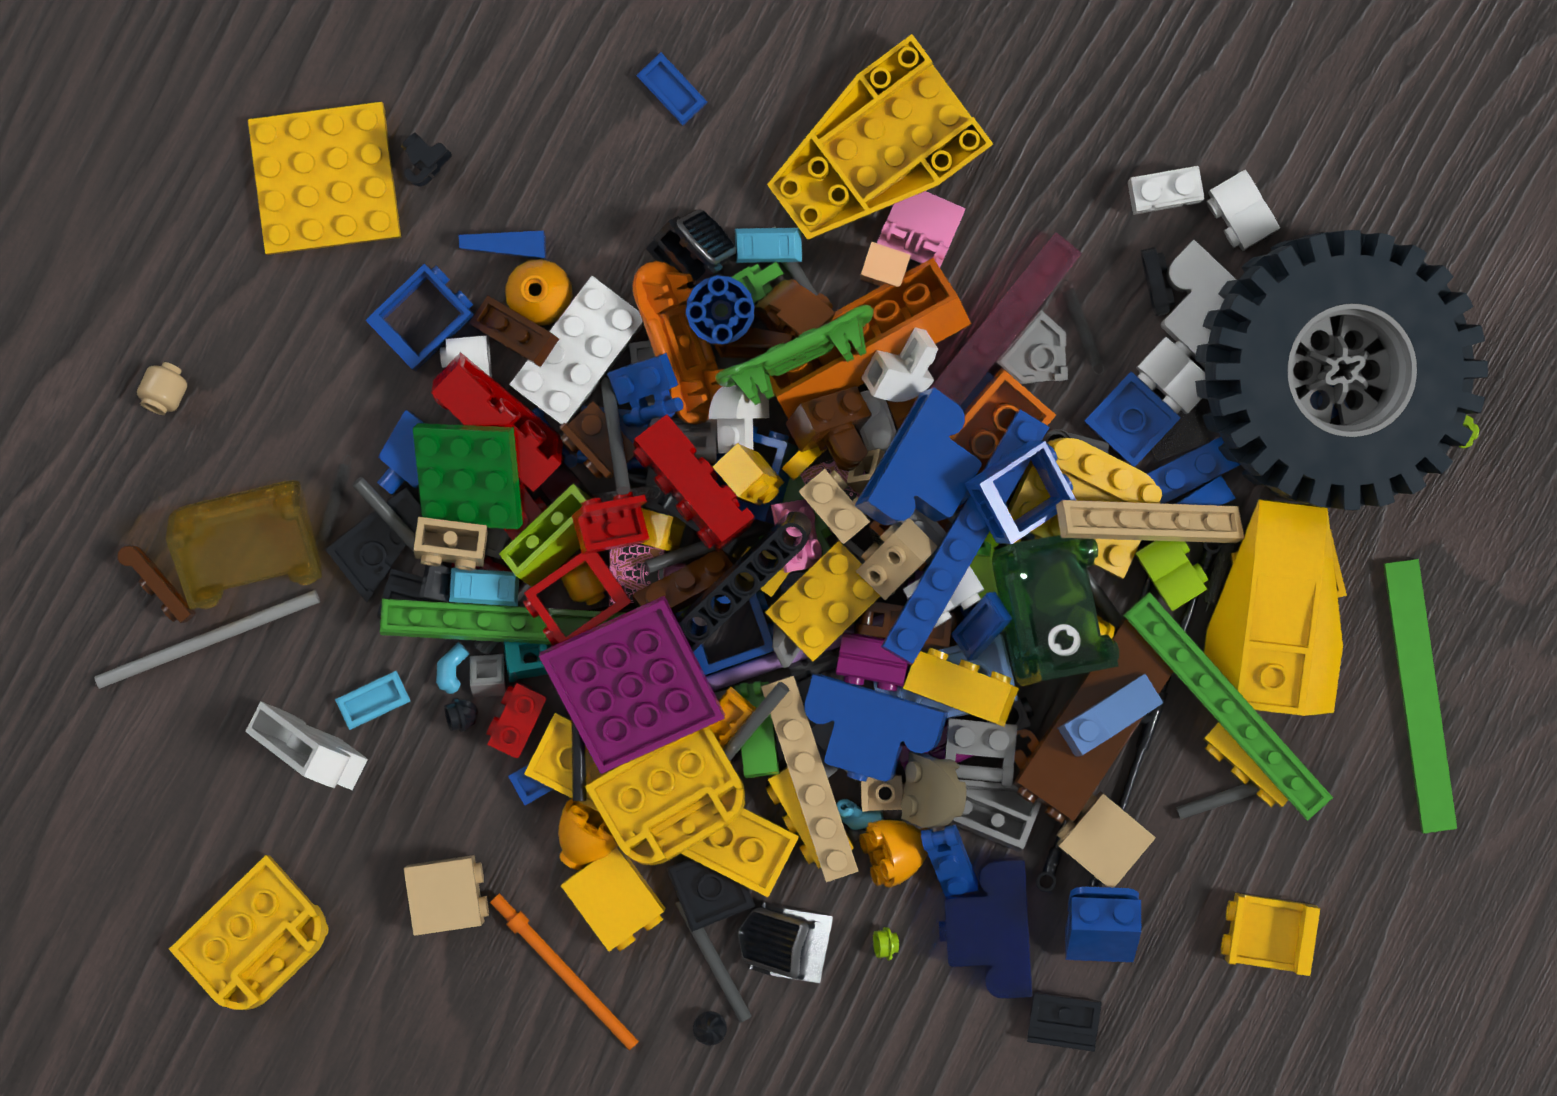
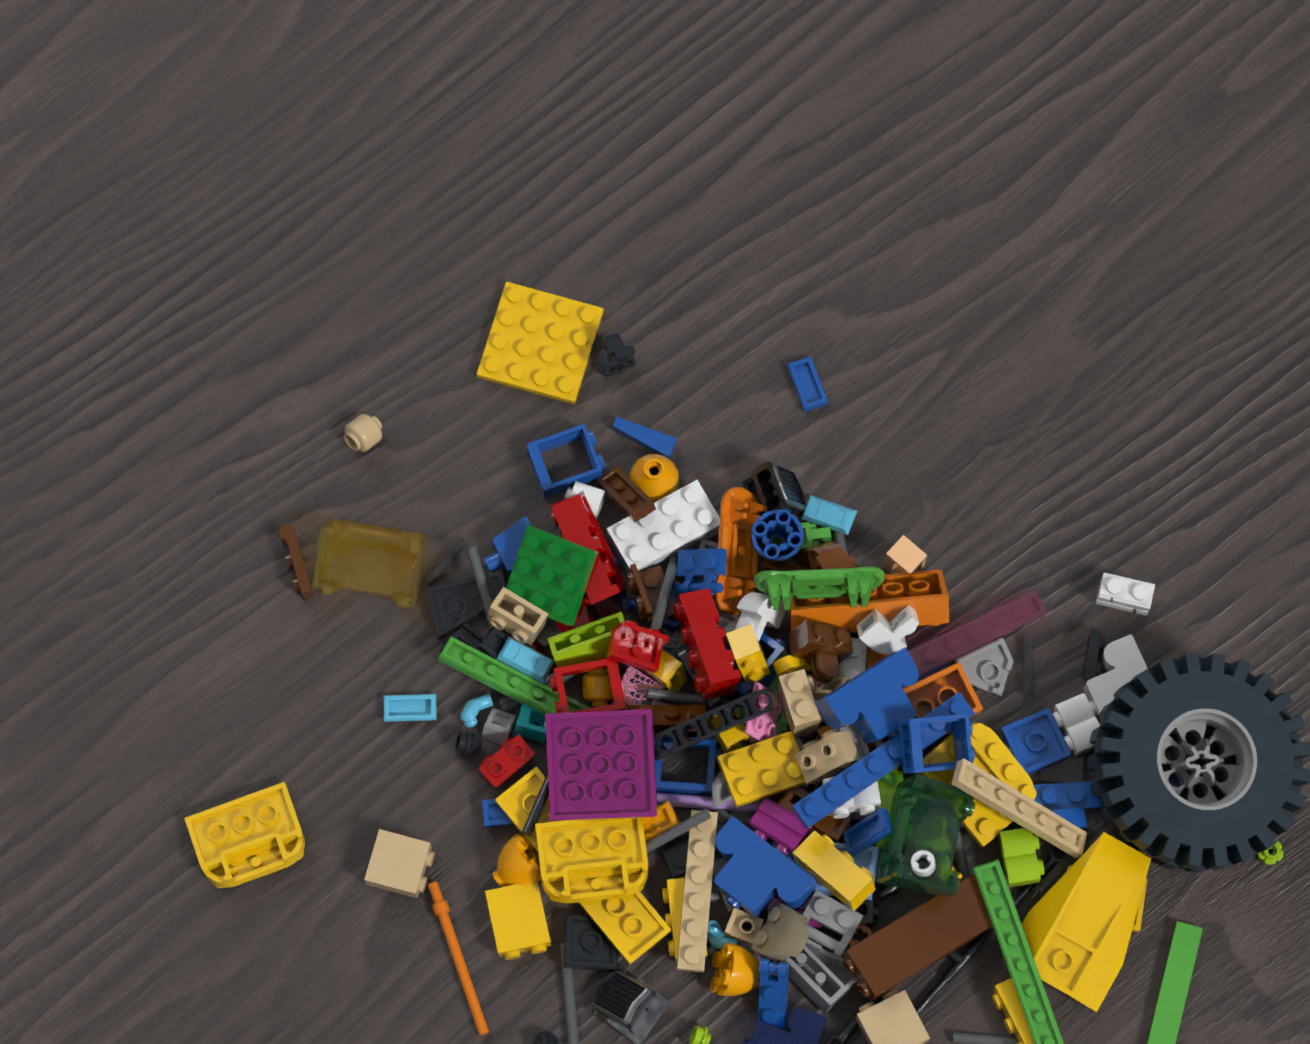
camera: 25 degrees right, 15 degrees down
(207, 639) = (308, 616): light grey piece -> none
(306, 748) = (351, 714): white brick -> none
(760, 750) = (671, 854): bright green hinge -> none
(879, 144) = (936, 476): yellow wedge -> none
(922, 227) = (944, 545): bright pink hinge -> none
(1110, 716) = (932, 932): medium blue slope -> none
(1242, 210) = (1174, 630): white brick -> none

